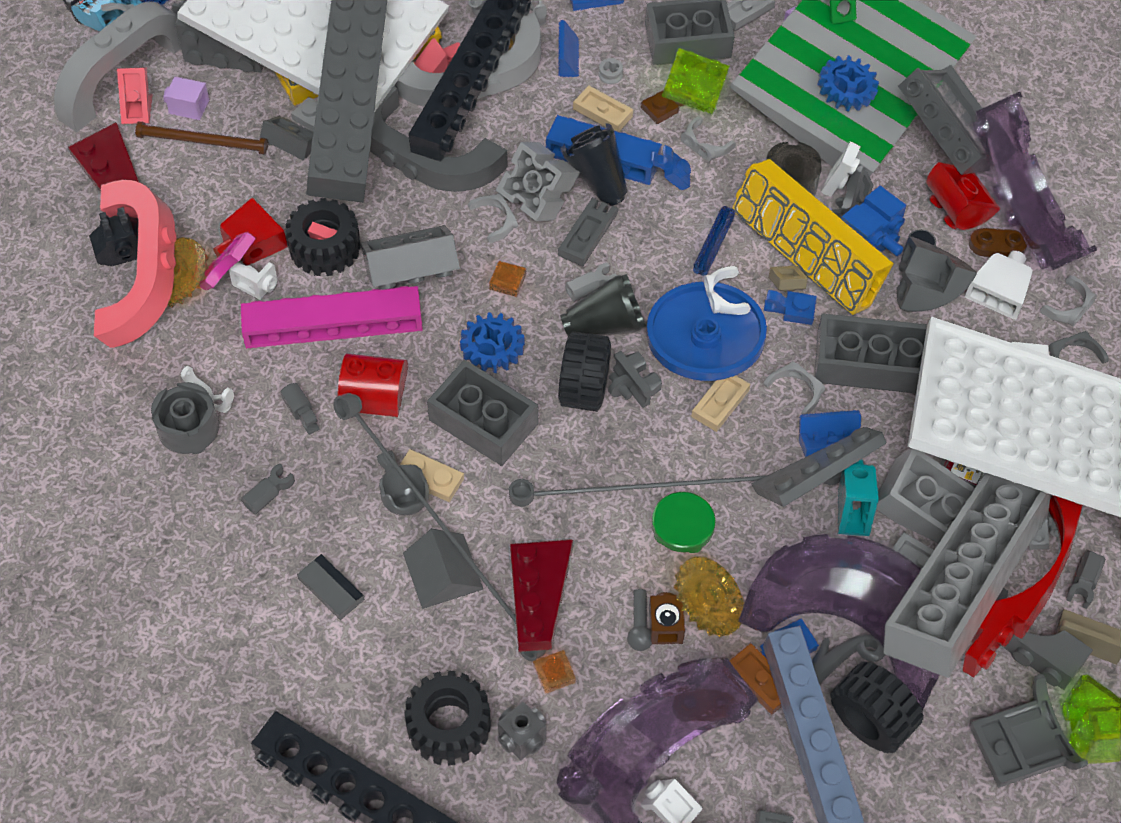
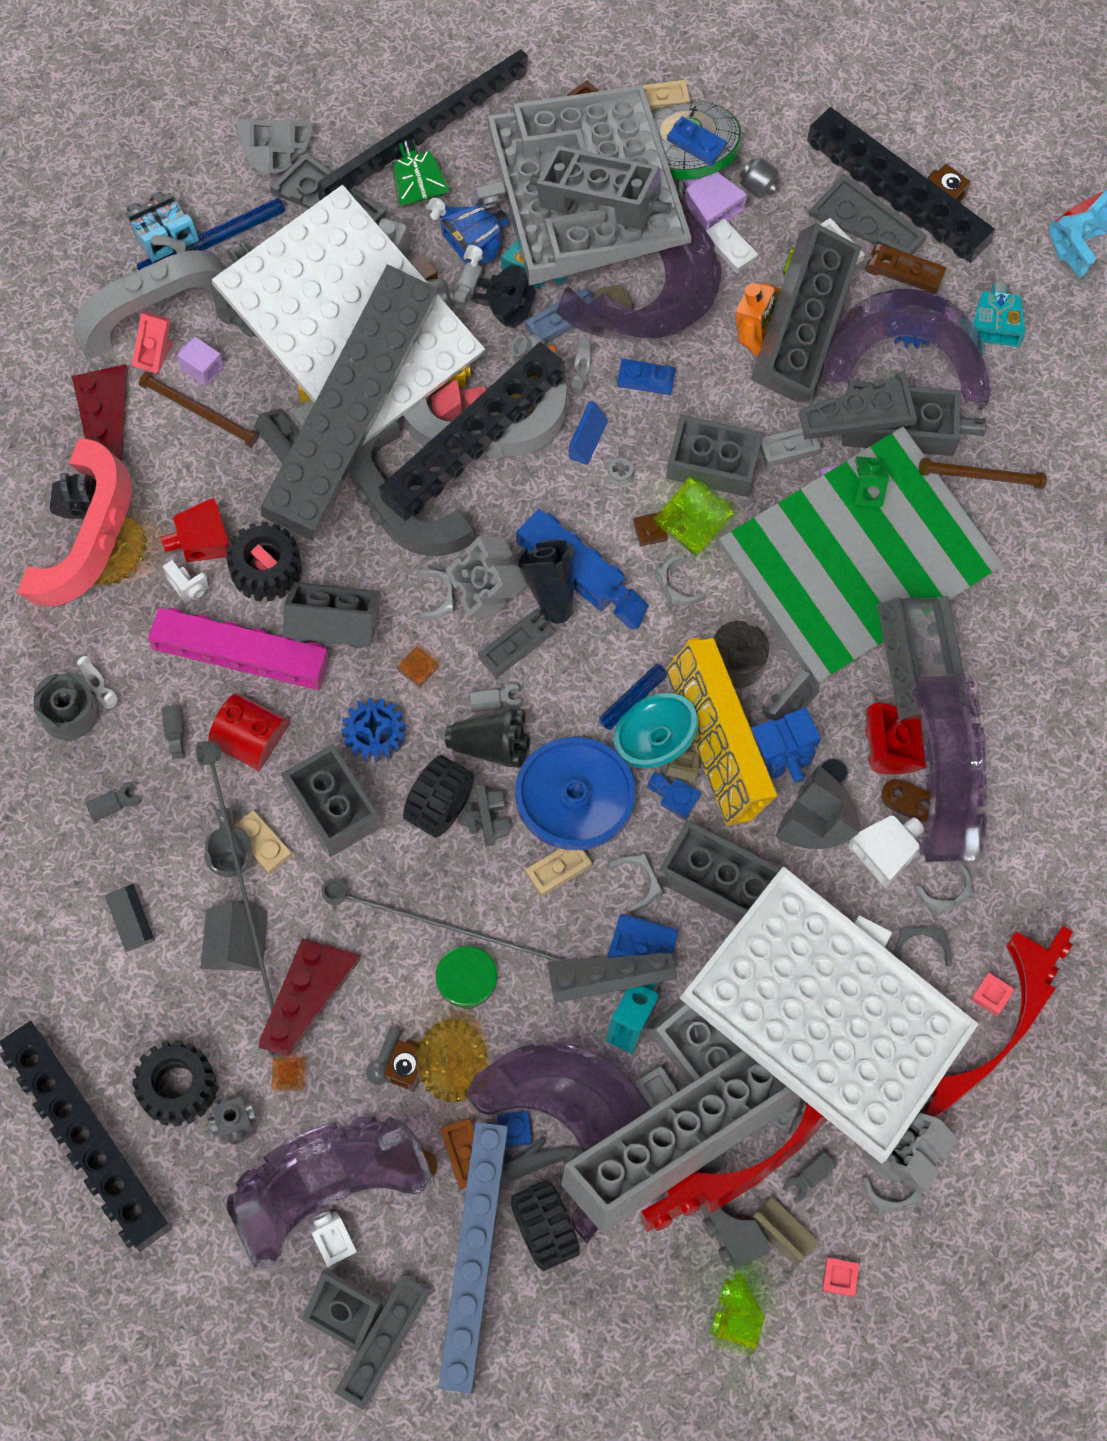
camera: 20 degrees right, 10 degrees up
(226, 260) = (163, 557): dark pink tile -> none
(602, 108) = (591, 513): tan plate -> none
(717, 303) = (600, 745): white cap -> none
(758, 251) = (656, 730): none -> teal dish
(838, 175) = (787, 670): white plate -> none
(848, 83) = (845, 582): blue gear -> none
(1025, 739) = (670, 1305): dark grey piece -> none

